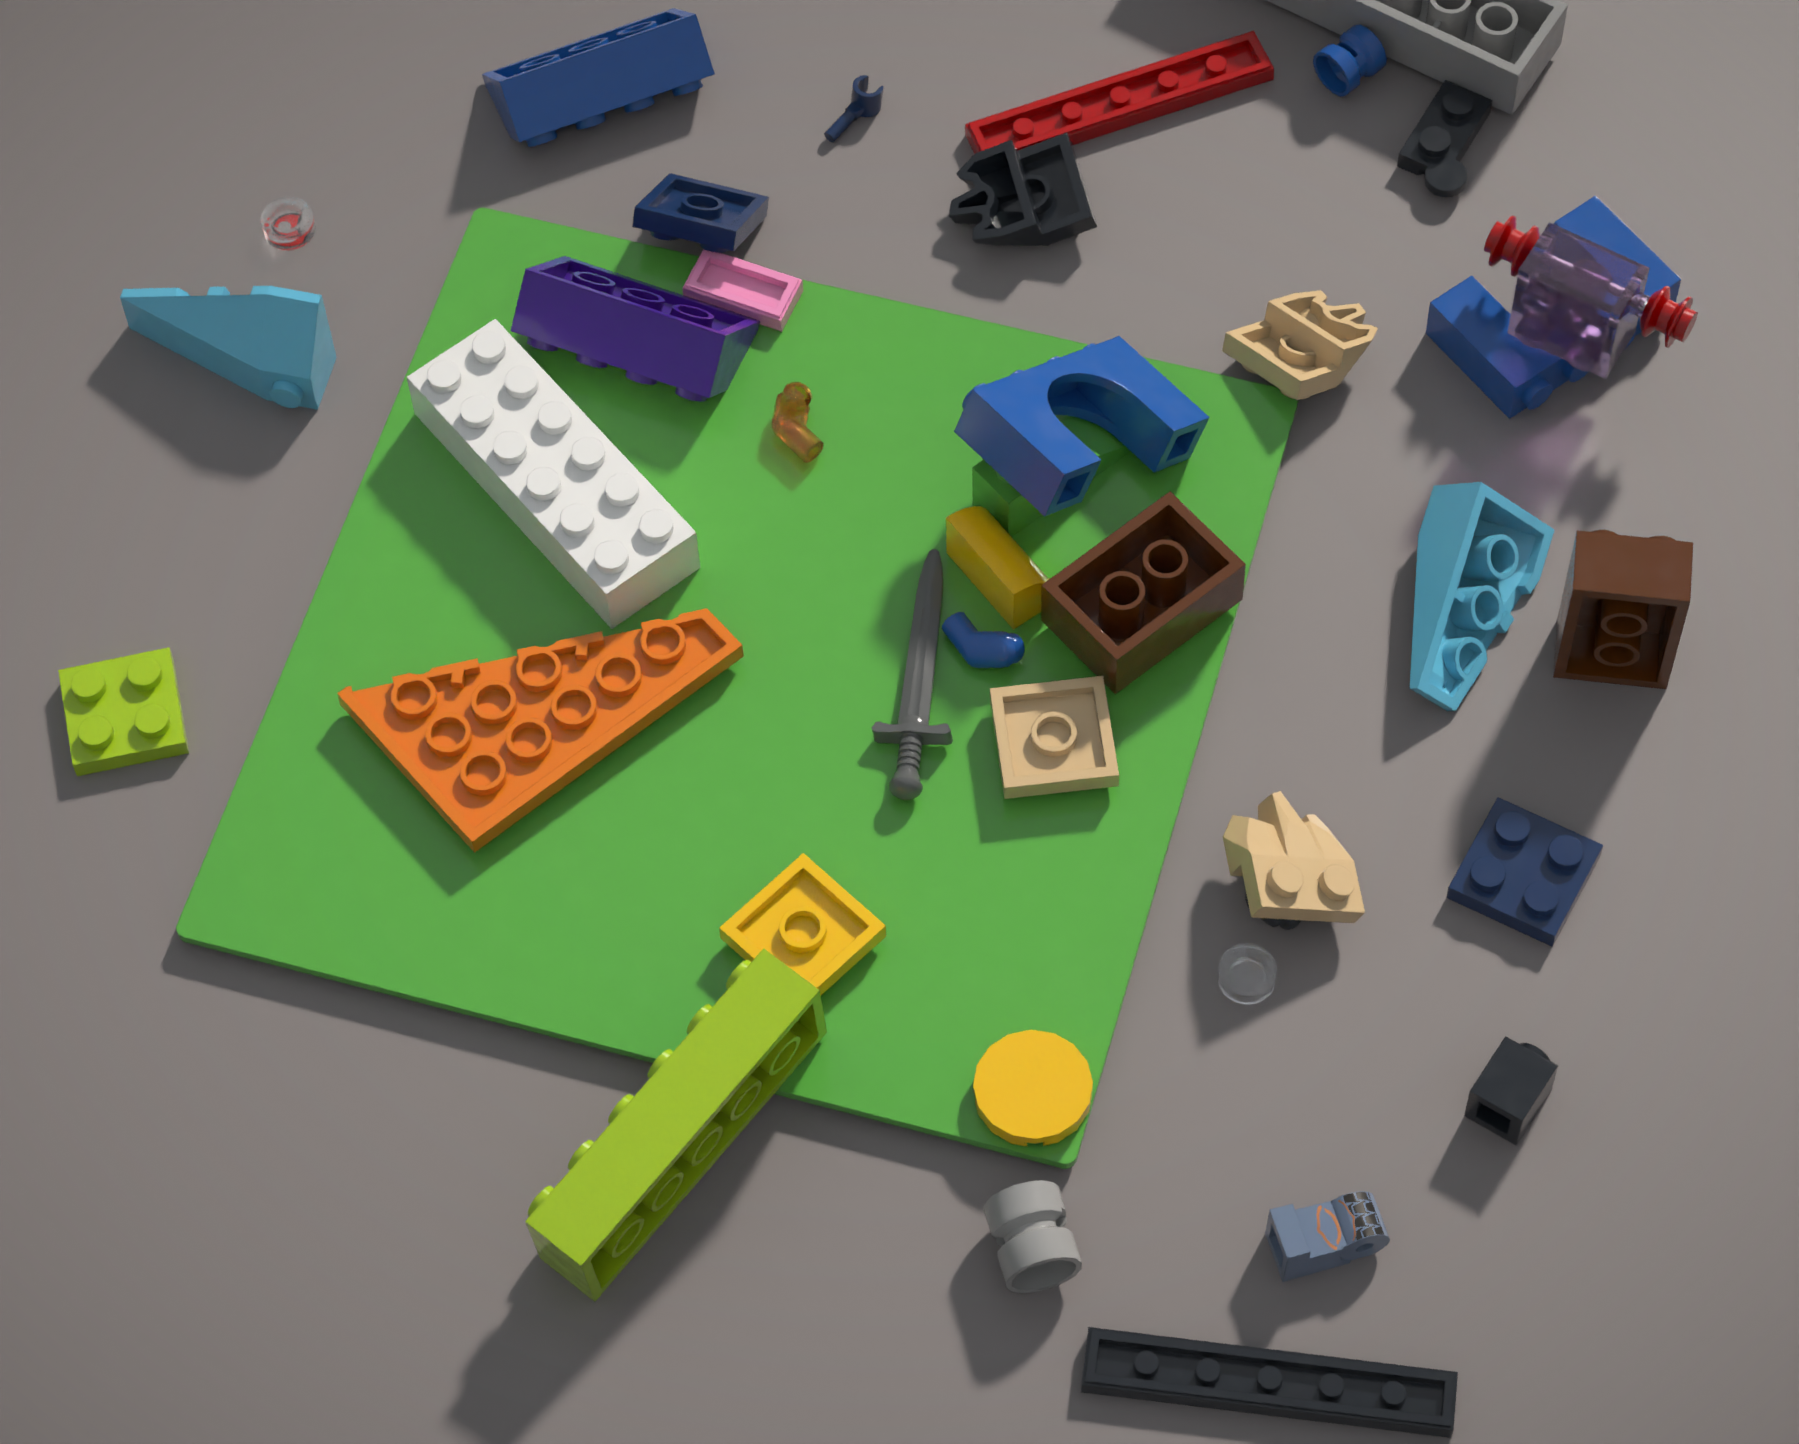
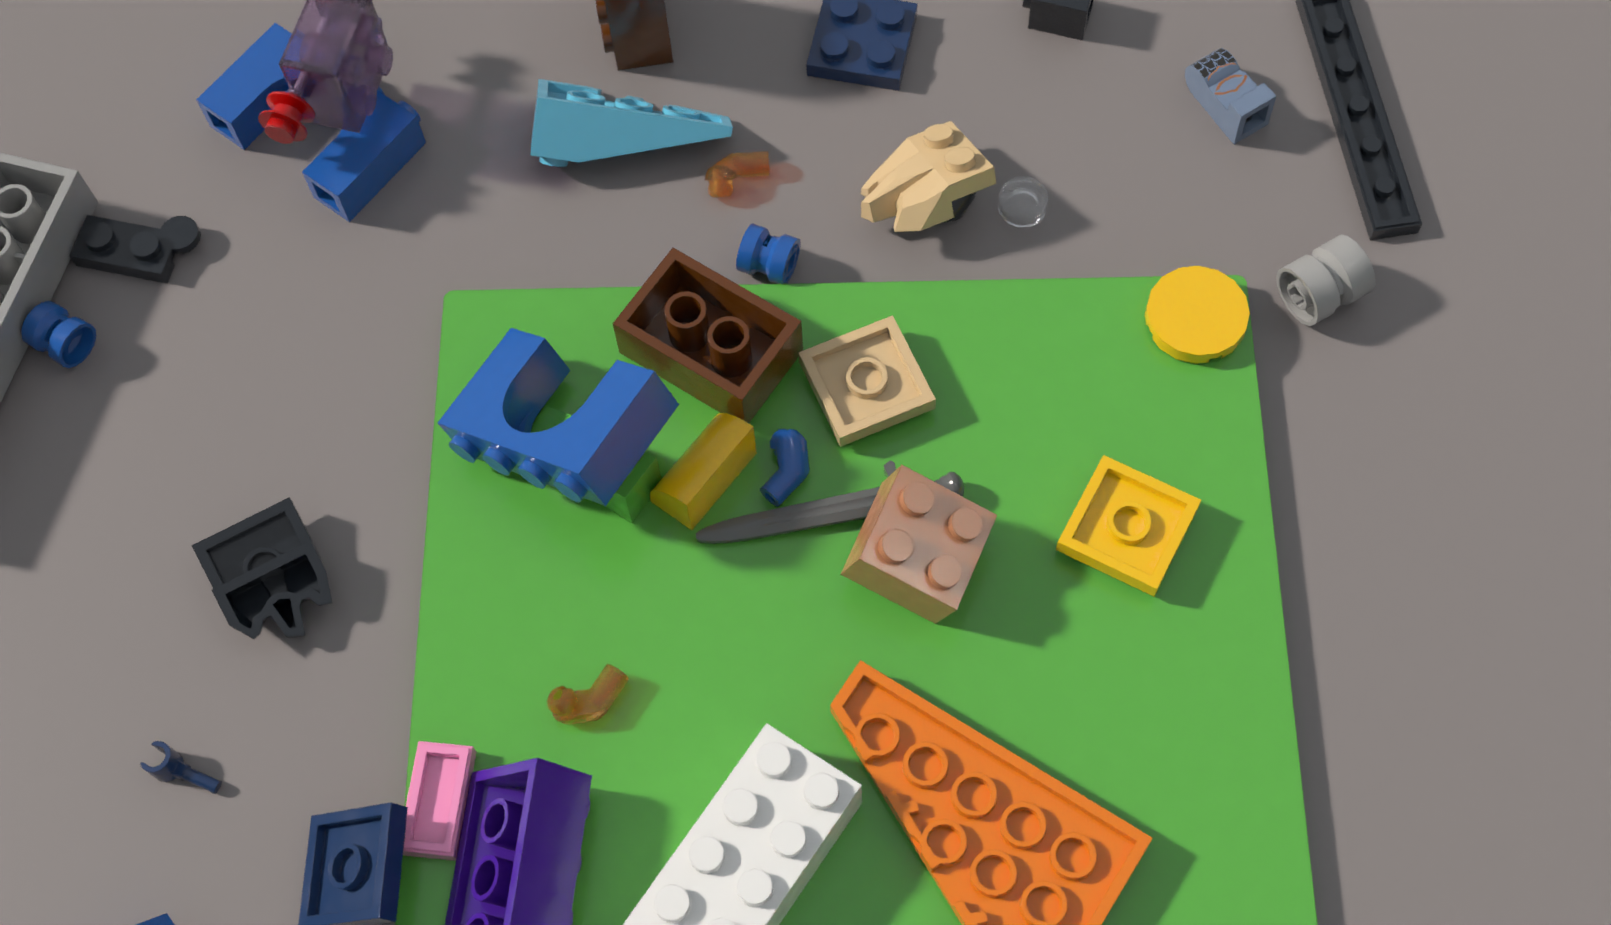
camera: 105 degrees left, 5 degrees up
(676, 1123) = (1370, 555): lime brick -> none
(838, 716) = (919, 544): none -> nougat brick
(1130, 96) = (133, 529): red tile -> none
(1247, 695) = (768, 254): none -> blue wheel
(1302, 343) = (394, 294): tan plate -> none
(1382, 696) = (734, 166): none -> clear orange arm

